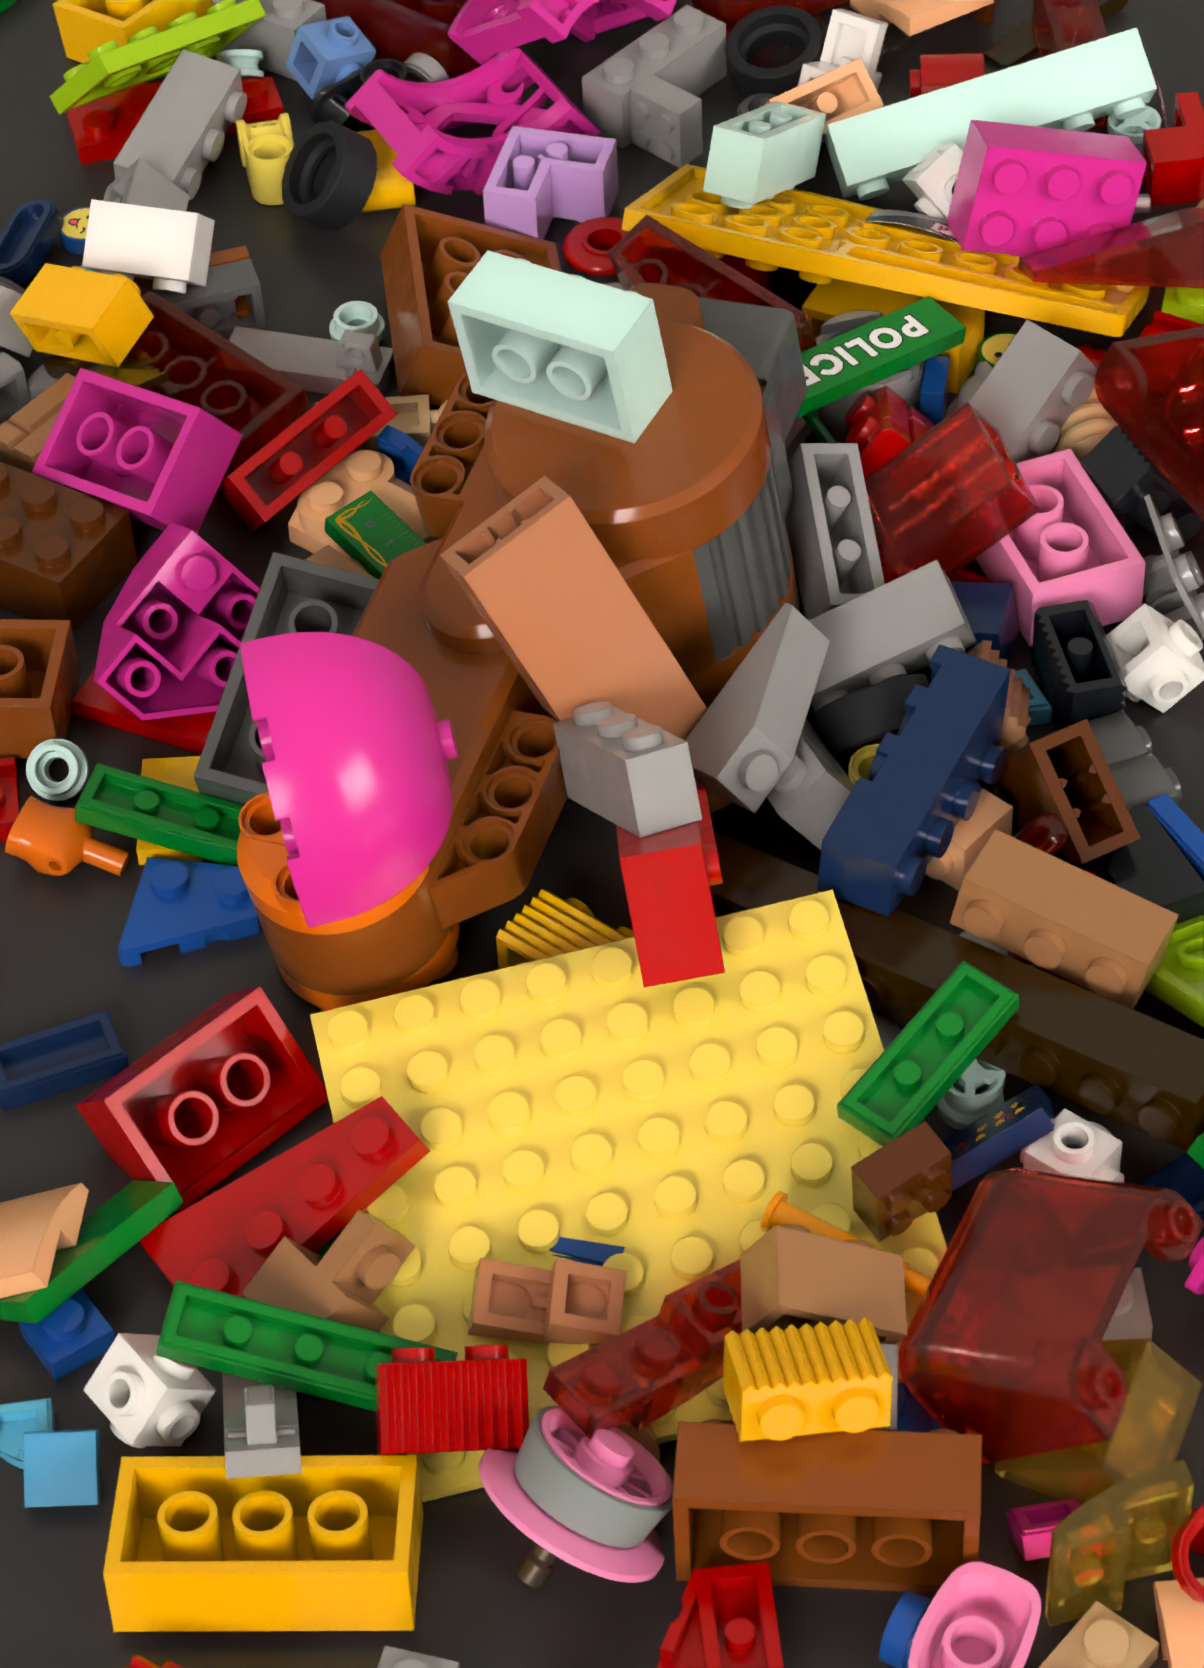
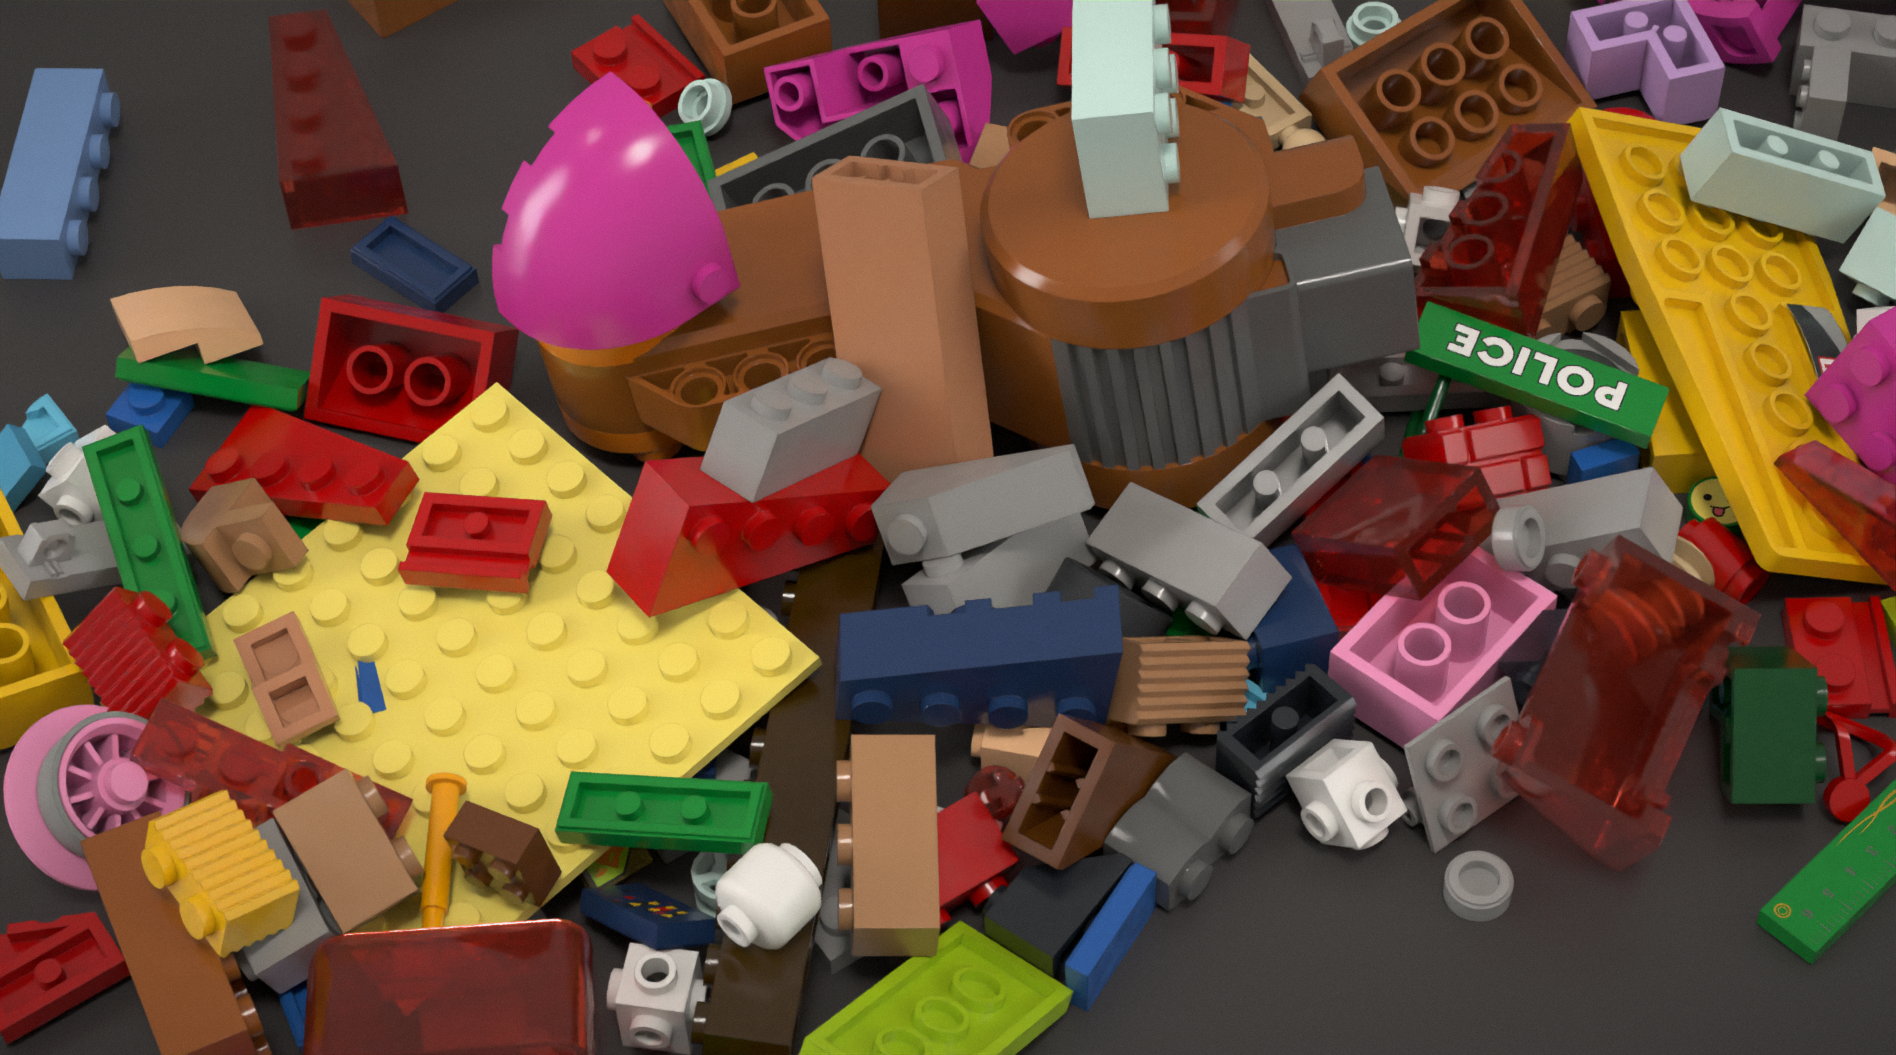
camera: 60 degrees right, 5 degrees up
(516, 1082) = (475, 542): none -> red plate
(1019, 432) = (1518, 538): none -> light grey tile
(1091, 996) = (768, 895): none -> white head

